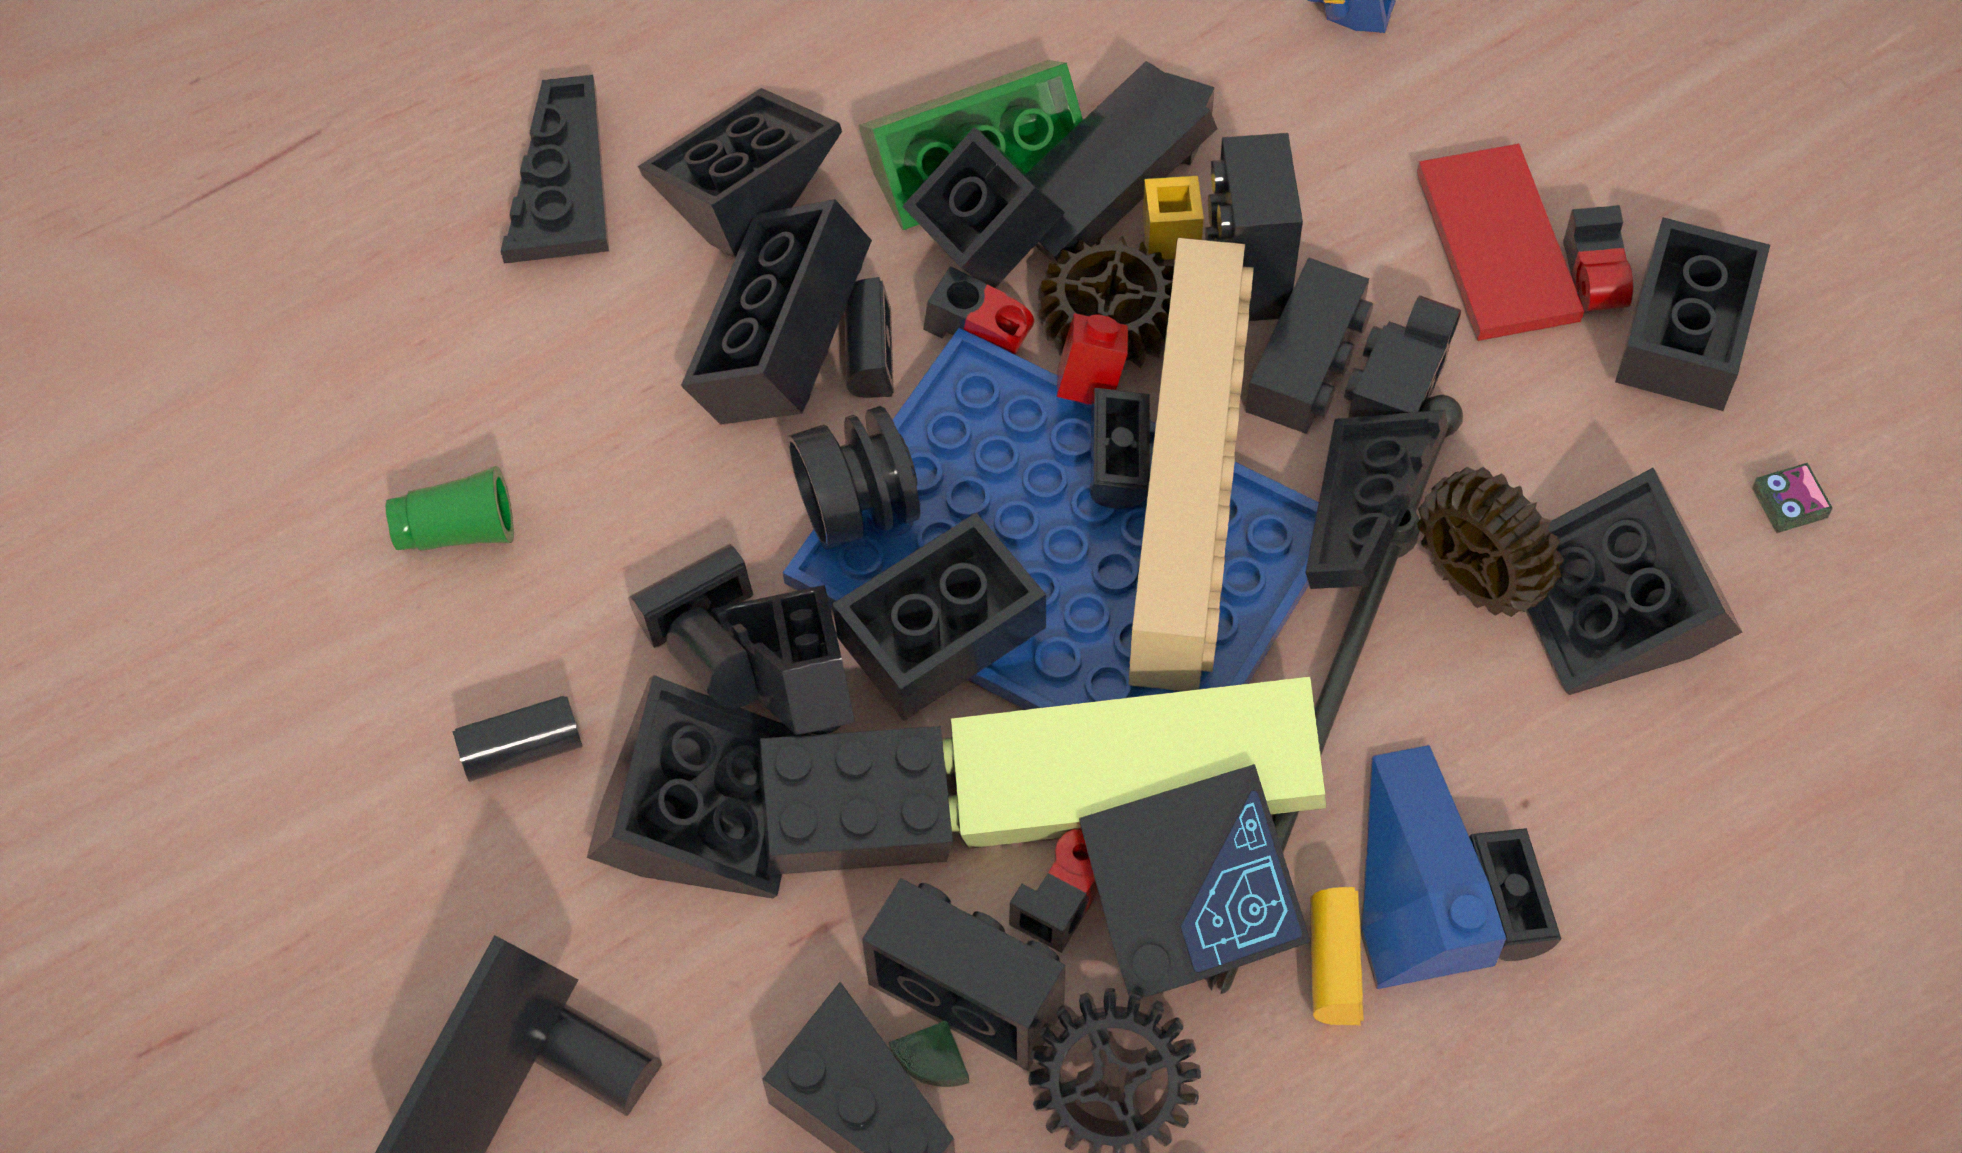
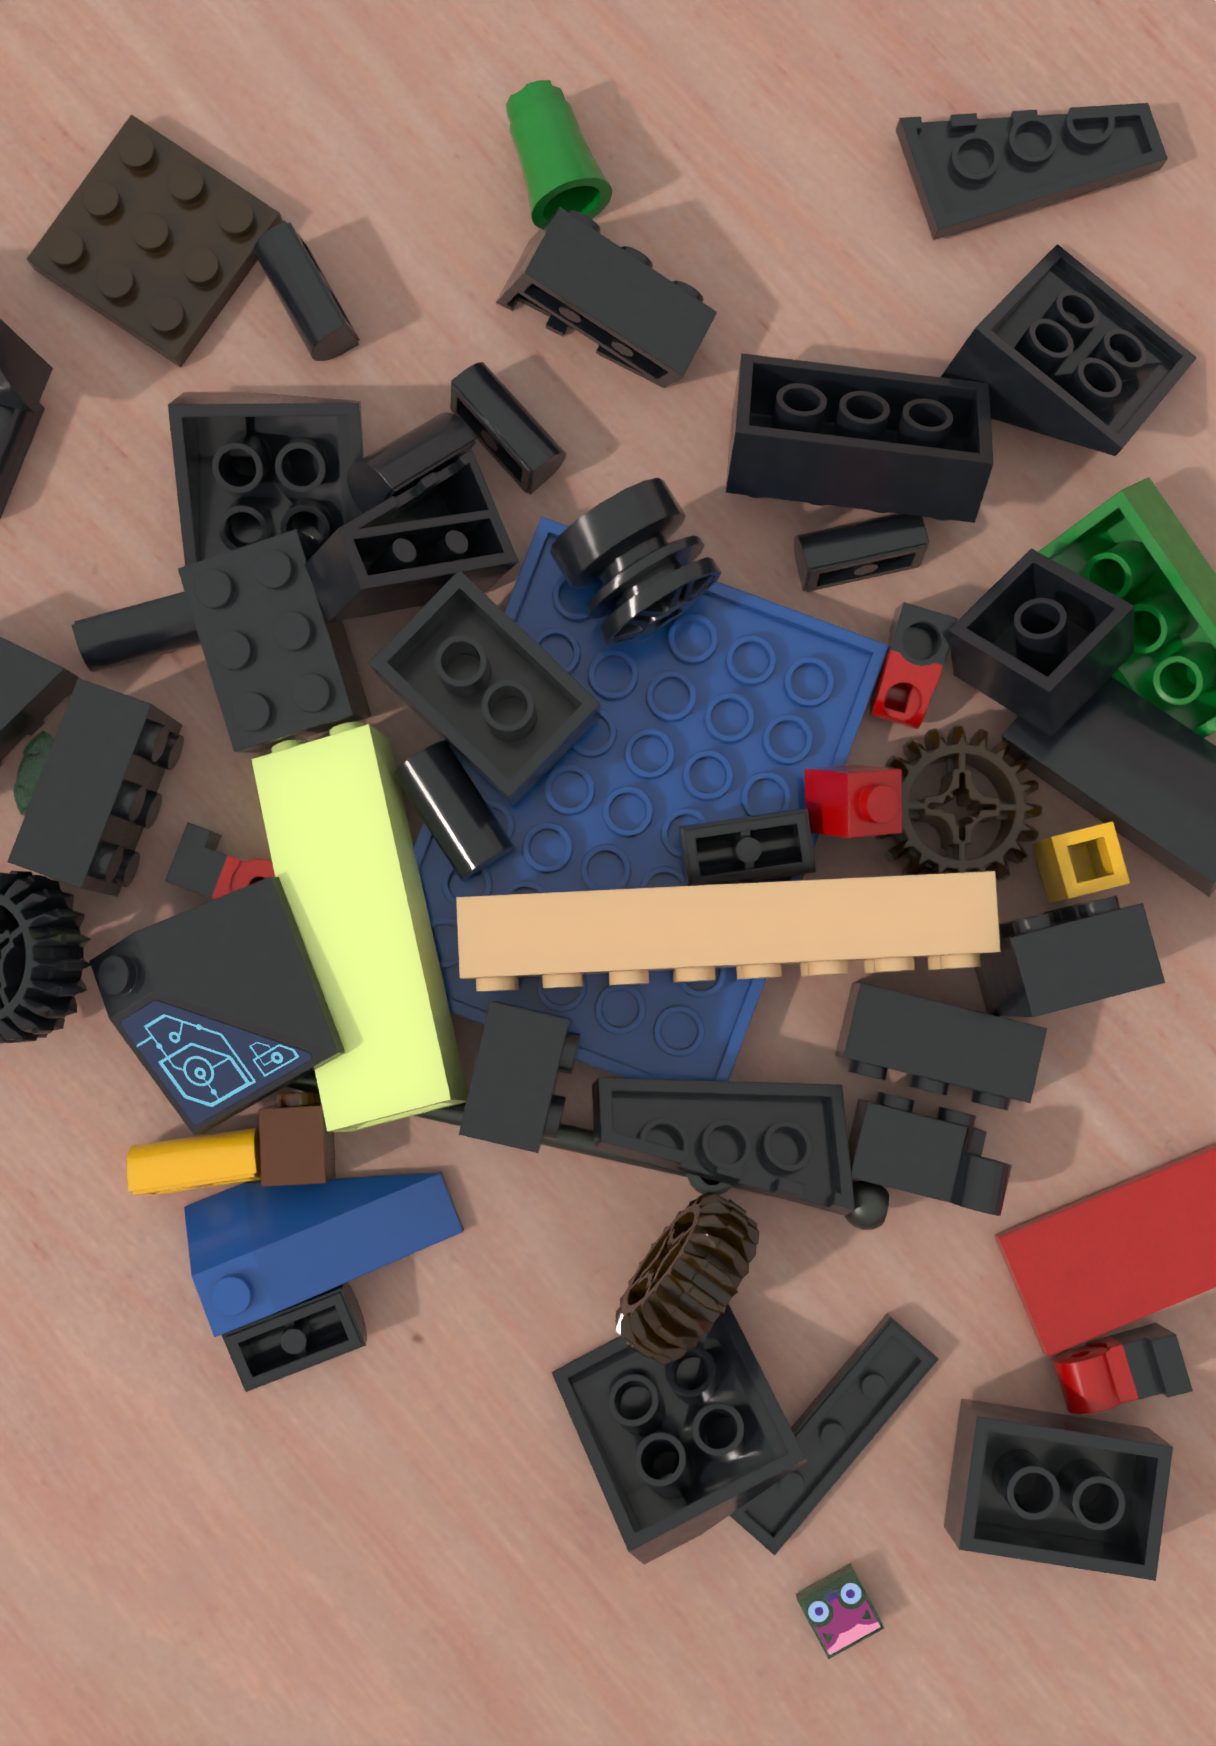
camera: 75 degrees right, 25 degrees up
(424, 874) = (154, 240): none -> dark brown plate
(593, 489) = (609, 298): none -> black wedge
(811, 930) = (136, 632): none -> black brick
(1044, 673) = (453, 809): none -> black brick
(1293, 630) = (517, 1077): none -> black brick
(1328, 858) = (295, 1142): none -> reddish brown brick
(1613, 457) = (839, 1428): none -> black tile

